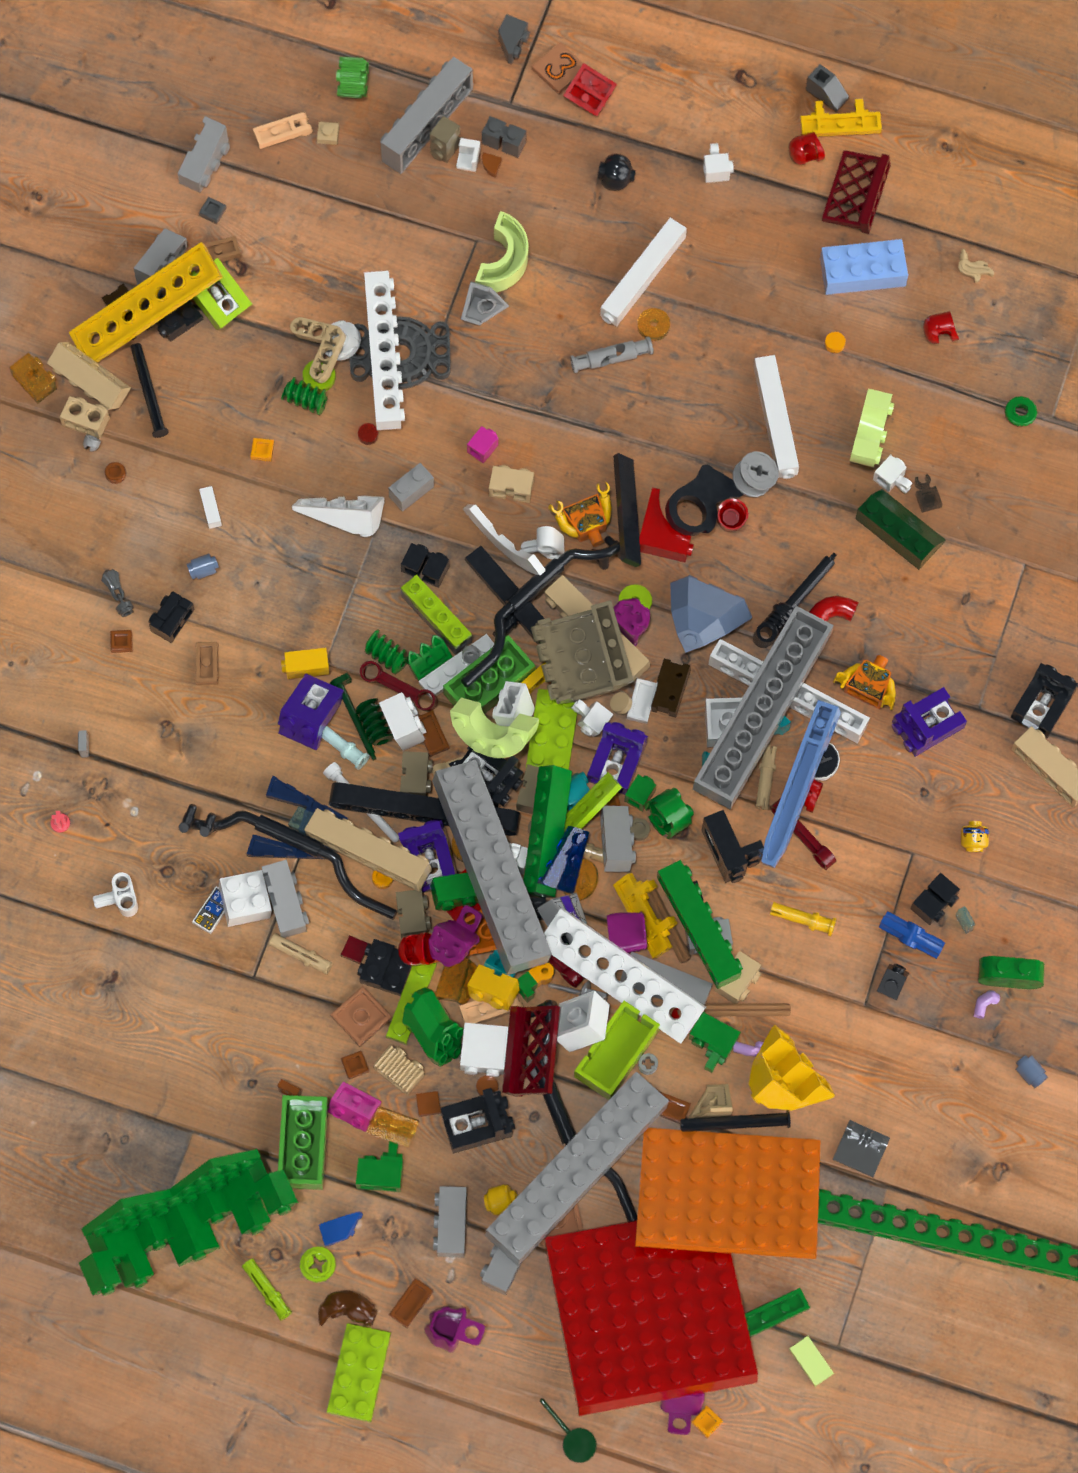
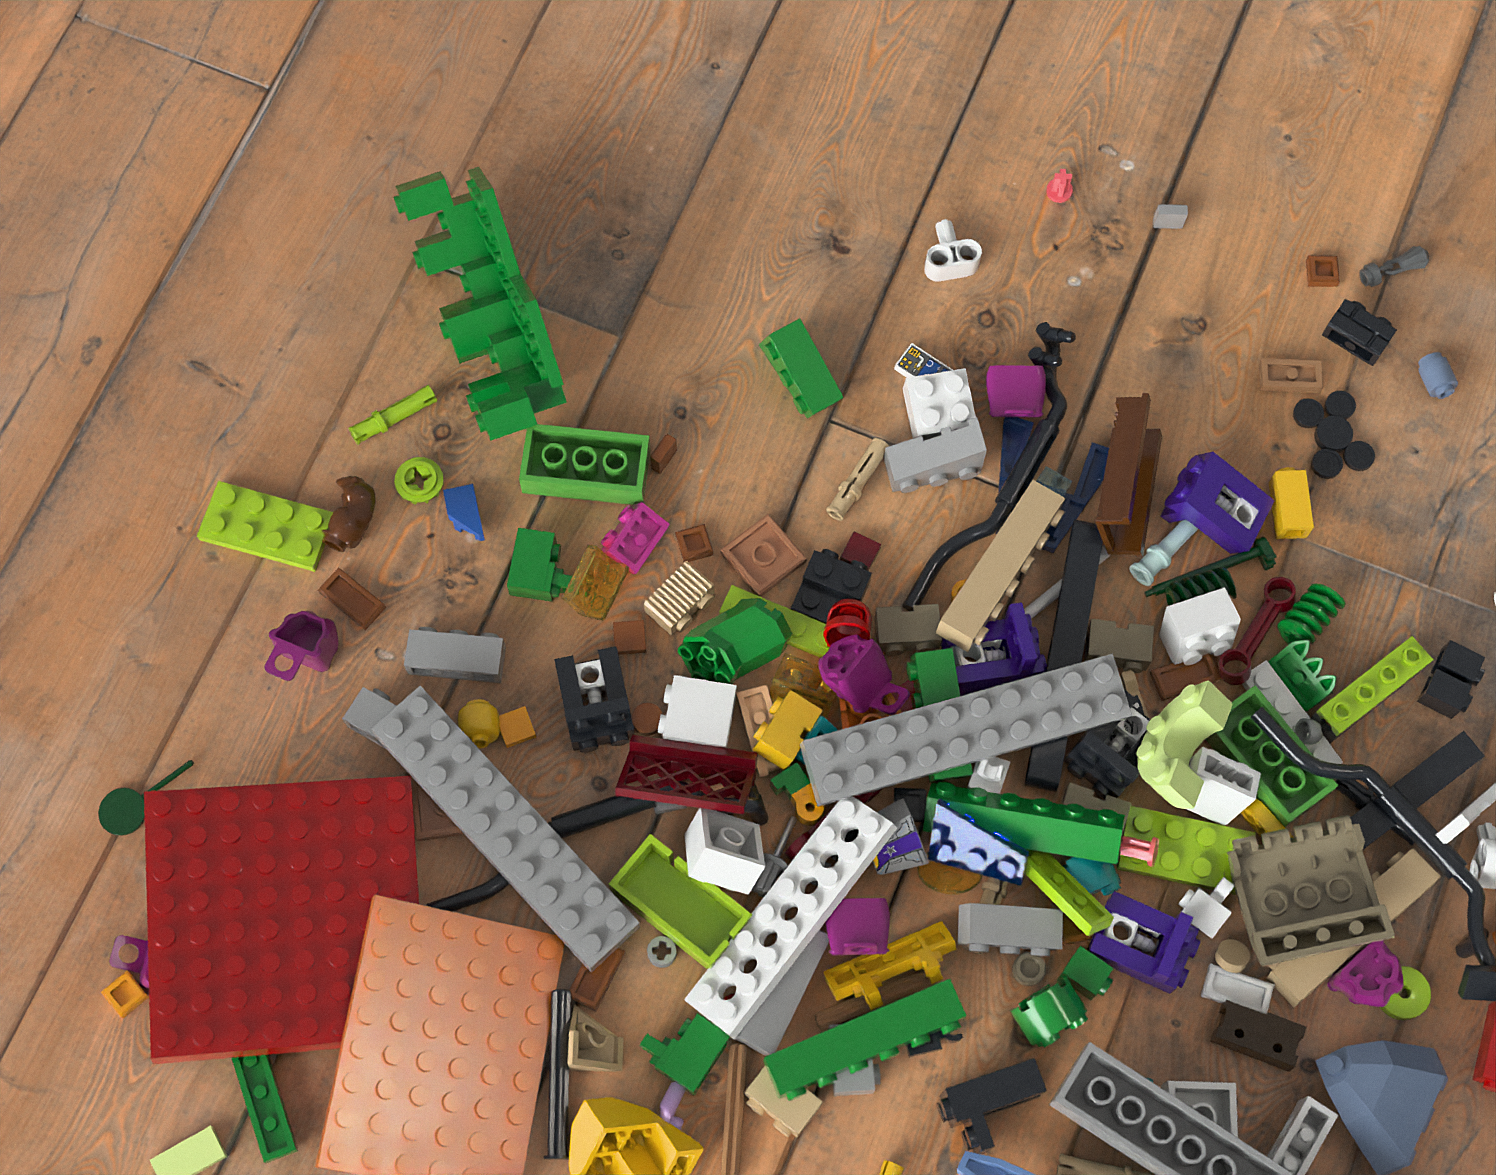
camera: 95 degrees right, 0 degrees up
(218, 996) = (801, 368): none -> green wedge
(234, 845) = (1016, 390): none -> magenta piece
(248, 636) = (1333, 434): none -> black piece
(297, 766) = (1129, 478): none -> reddish brown piece
(499, 1175) = (516, 727): none -> light orange tile
(558, 756) = (1140, 849): none -> coral piece

